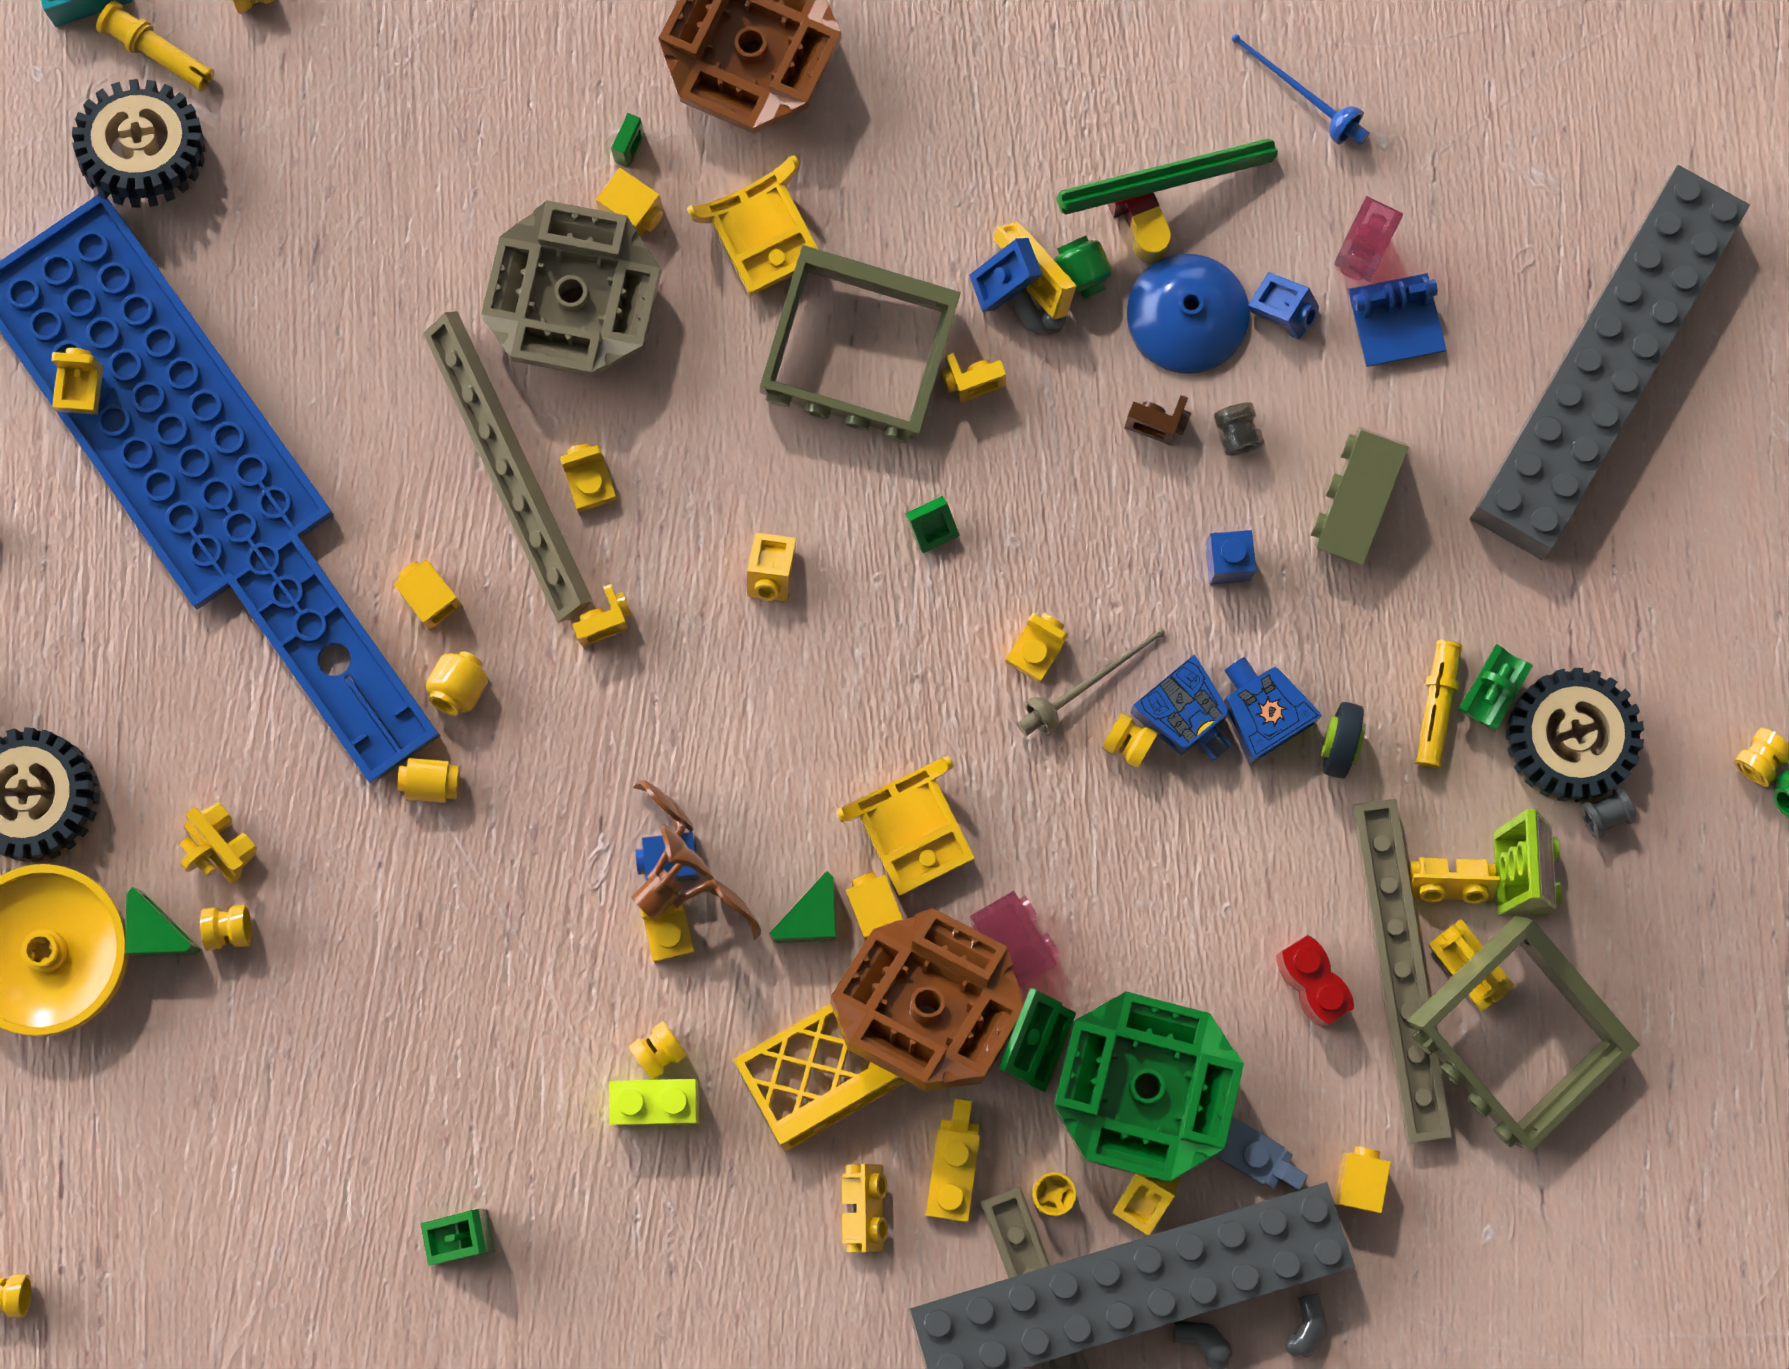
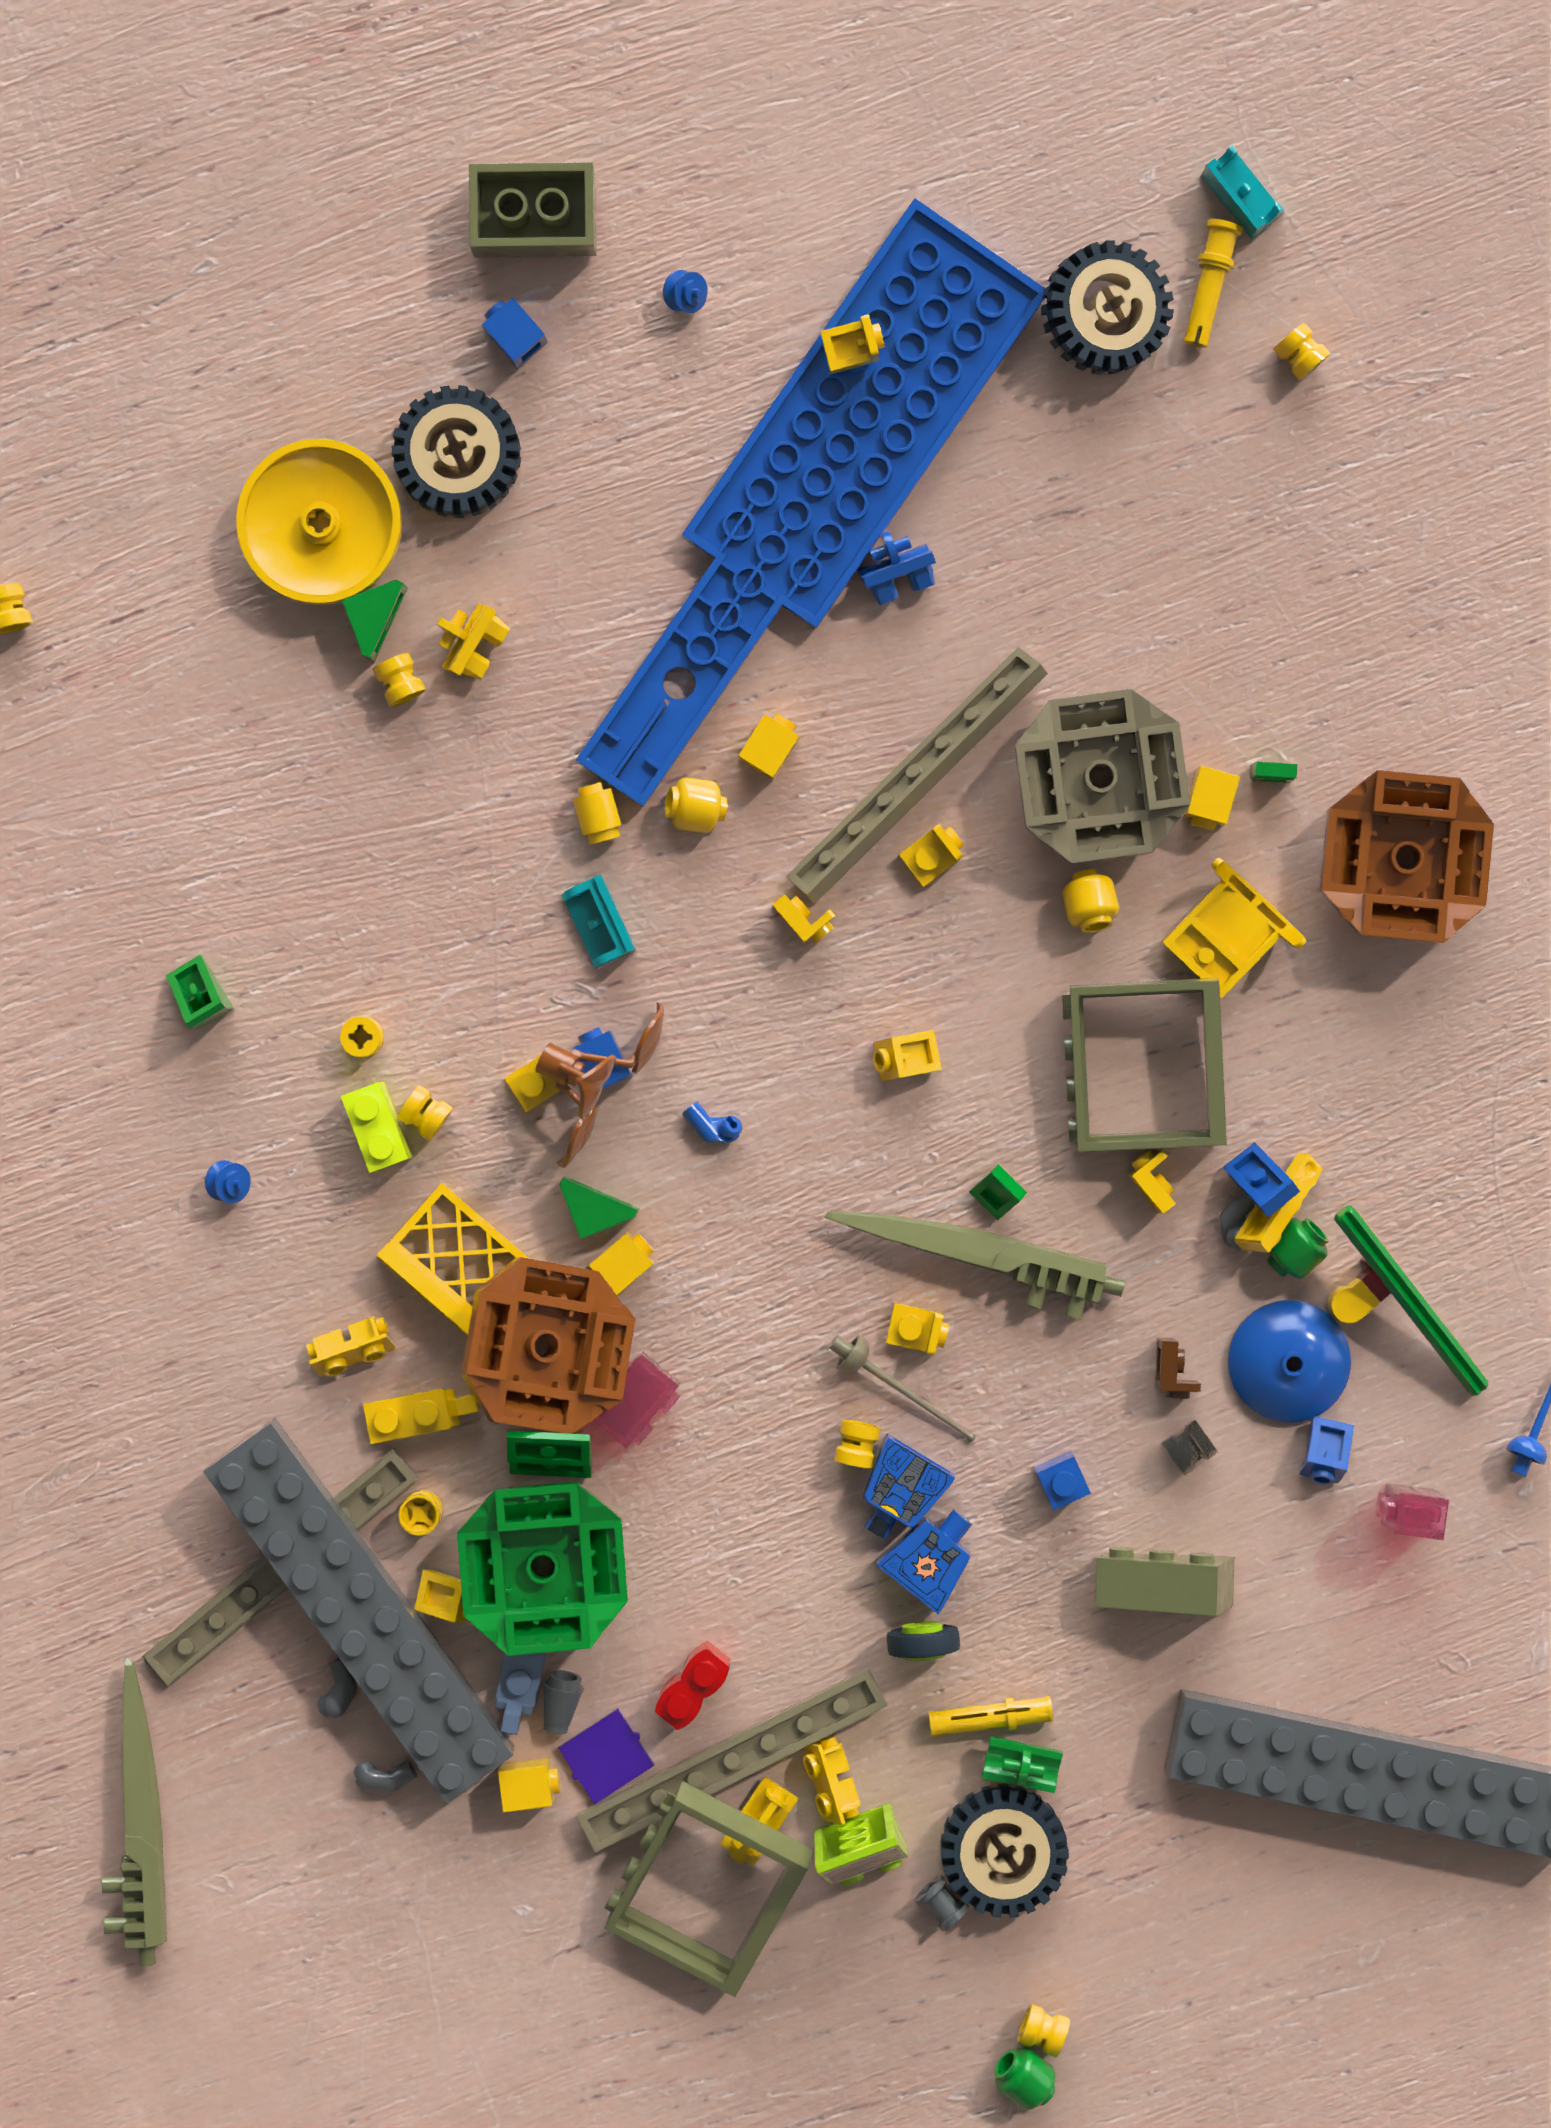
camera: 70 degrees right, 10 degrees up
(307, 399) = (914, 563): none -> blue hips
(533, 815) = (598, 921): none -> teal hinge
(567, 1090) = (369, 1036): none -> yellow wheel
(655, 1273) = (227, 1181): none -> blue wheel
(686, 345) = (1090, 901): none -> yellow head
(775, 775) = (713, 1128): none -> blue arm
(912, 827) = (707, 1271): yellow piece -> none
(1012, 516) = (1032, 1264): none -> olive piece
(1288, 1119) = (561, 1699): none -> dark grey cone
(1358, 1095) = (606, 1756): none -> dark purple piece
(1397, 319) = (1350, 1561): blue hinge -> none

